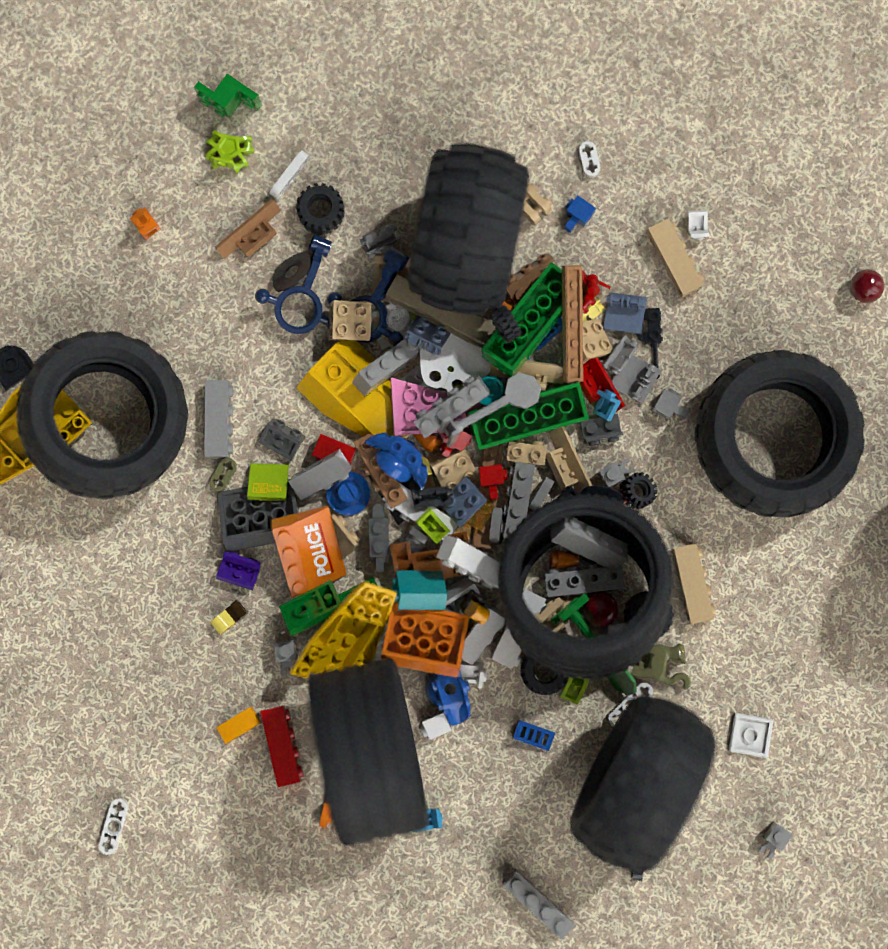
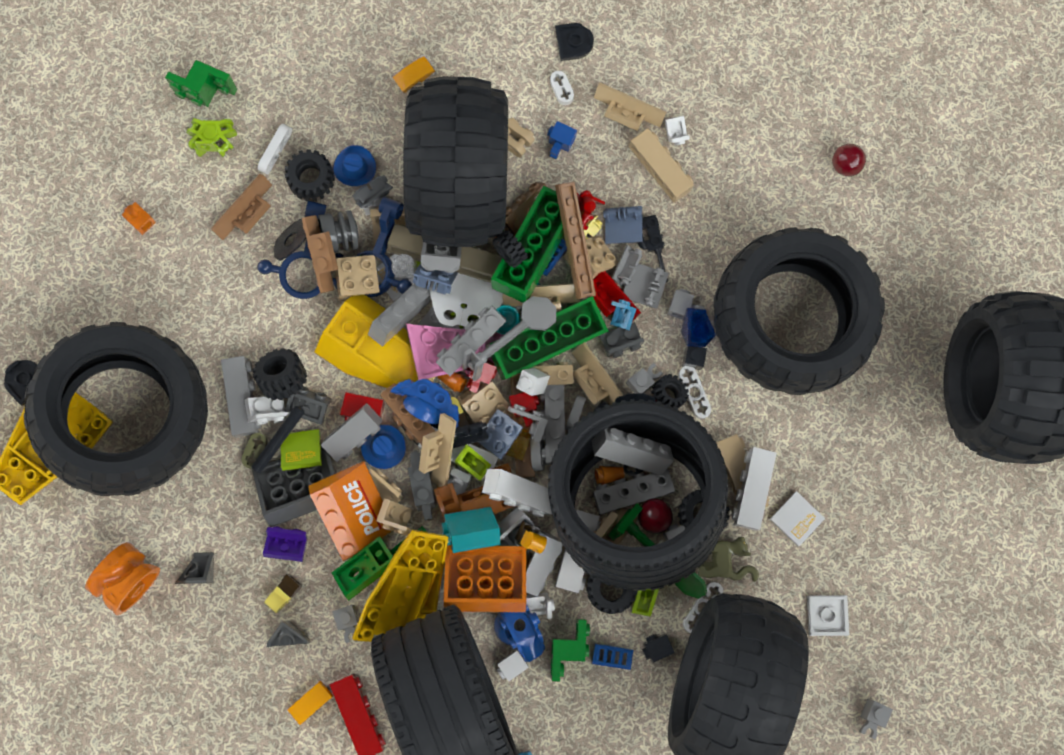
camera: 20 degrees left, 5 degrees down
(81, 575) = (122, 578): none -> orange piece
(152, 580) = (199, 569): none -> dark grey slope
(227, 657) = (287, 634): none -> dark grey slope
(241, 436) = (264, 410): none -> white bracket
(259, 457) = (278, 439): none -> black axle
(260, 416) = (280, 374): none -> black tyre
(320, 292) = (321, 253): none -> medium nougat bracket
(339, 272) = (341, 230): none -> dark grey wheel
(348, 564) = (394, 517): none -> tan bracket
(366, 206) = (354, 166): none -> blue hat
(401, 508) = (437, 450): none -> tan bracket
(436, 319) = (440, 258): none -> light grey slope
(442, 119) = (413, 73): none -> light orange slope
(493, 721) = (569, 649): none -> green bracket
(500, 504) = (536, 429): none -> light grey bracket
(505, 457) = (533, 381): none -> white brick
(578, 734) = (657, 647): none -> black brick
(610, 111) = (573, 41): none -> black tile
(651, 194) = (628, 109): none -> tan bracket
(666, 478) = (705, 403): none -> white beam
(669, 459) = (694, 357): none -> black brick
(678, 432) = (697, 328): none -> clear blue slope
(702, 600) = (754, 488): none -> white brick
(740, 636) = (797, 518): none -> white tile

